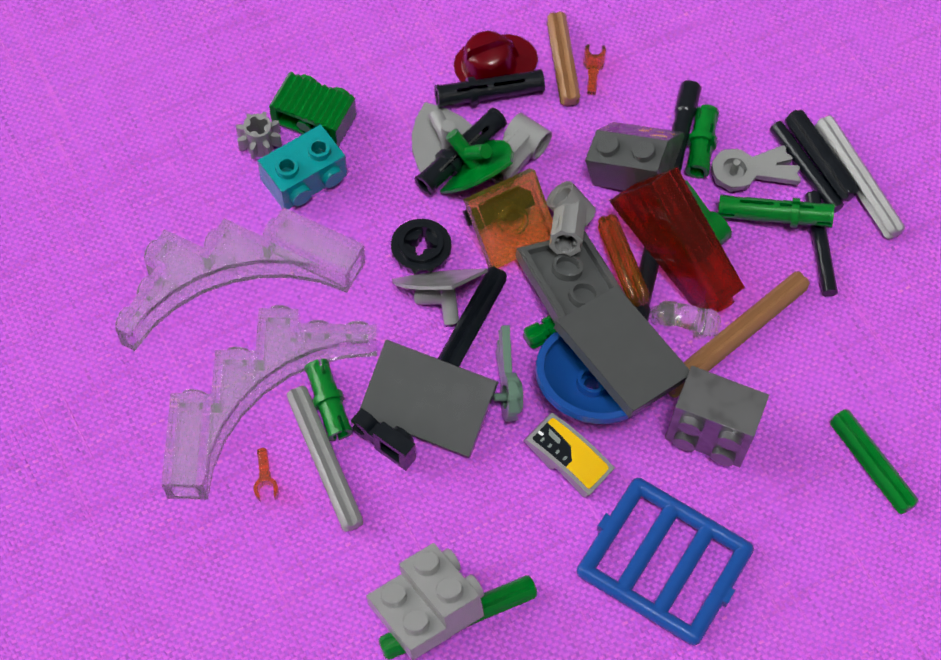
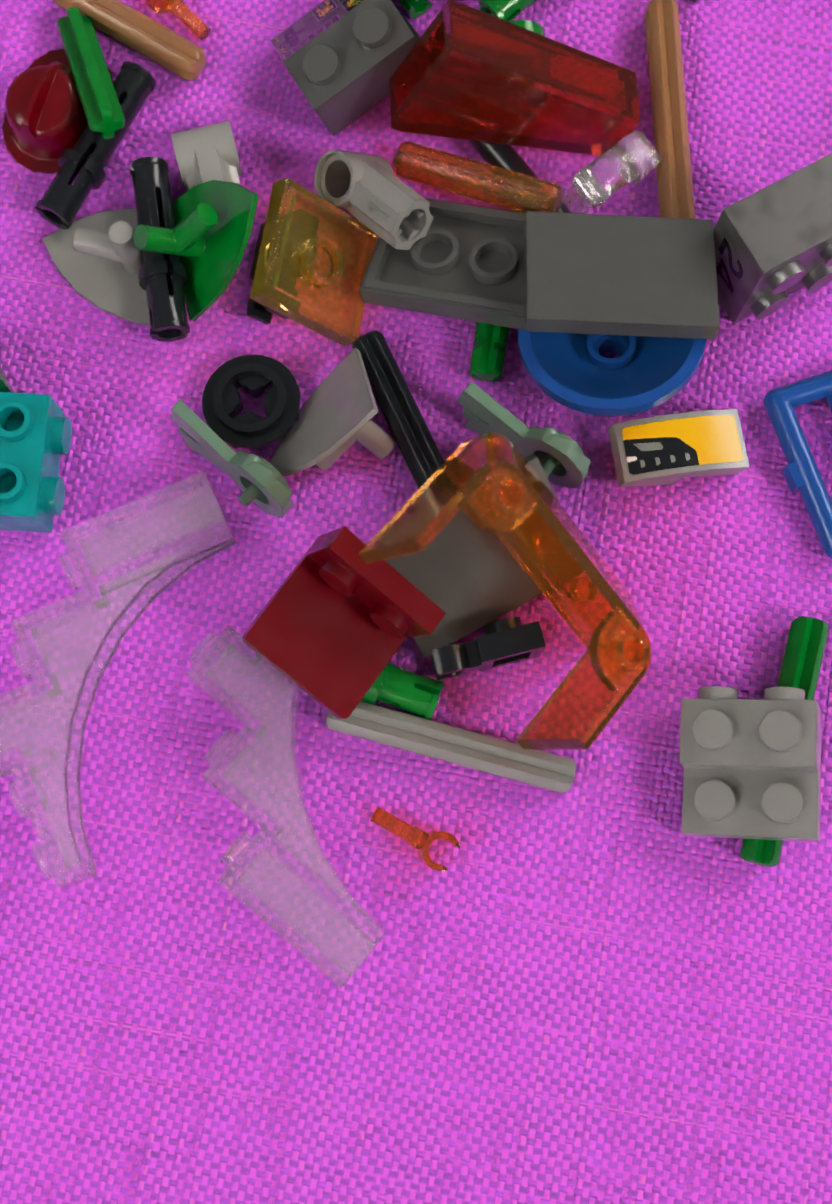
camera: 50 degrees left, 15 degrees up
(335, 351) = (339, 621): none -> dark red bracket
(384, 266) = (250, 472): none -> piece
(463, 371) = (509, 499): none -> clear orange windscreen
(519, 58) = (90, 73): none -> green axle

